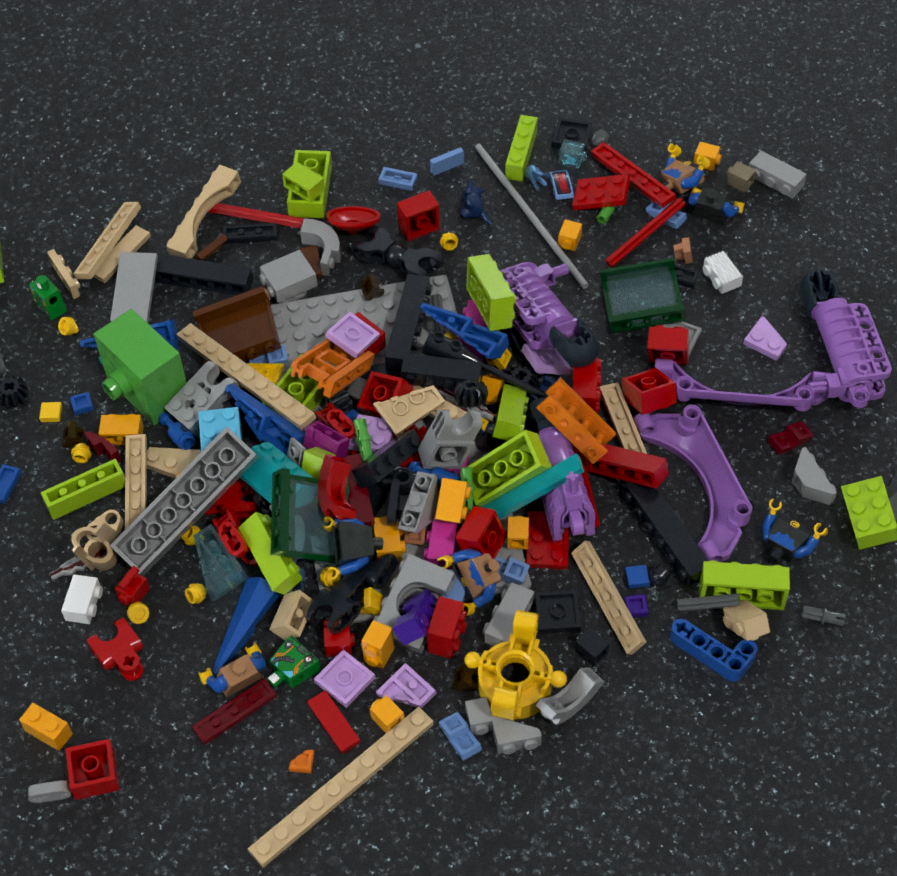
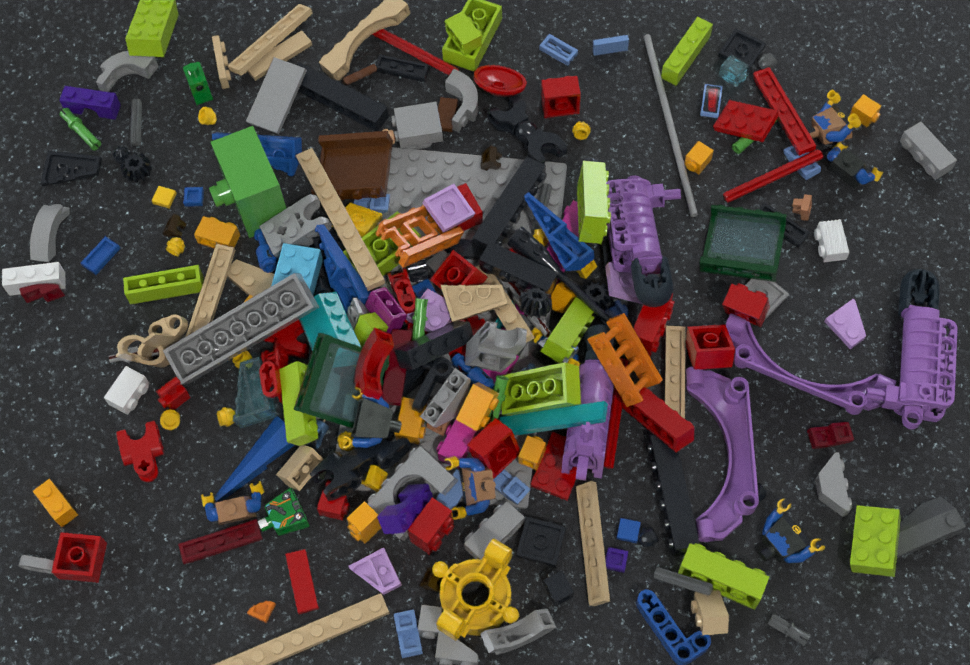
camera: 20 degrees right, 10 degrees up
(101, 446) = (194, 246): dark red slope -> none
(344, 678) = (326, 543): lavender plate -> none
(386, 713) = (349, 590): light orange brick -> none
(473, 205) = (618, 99): dark blue animal -> none
(533, 172) = (689, 80): flat silver piece -> none
(740, 176) = (890, 142): dark tan brick -> none

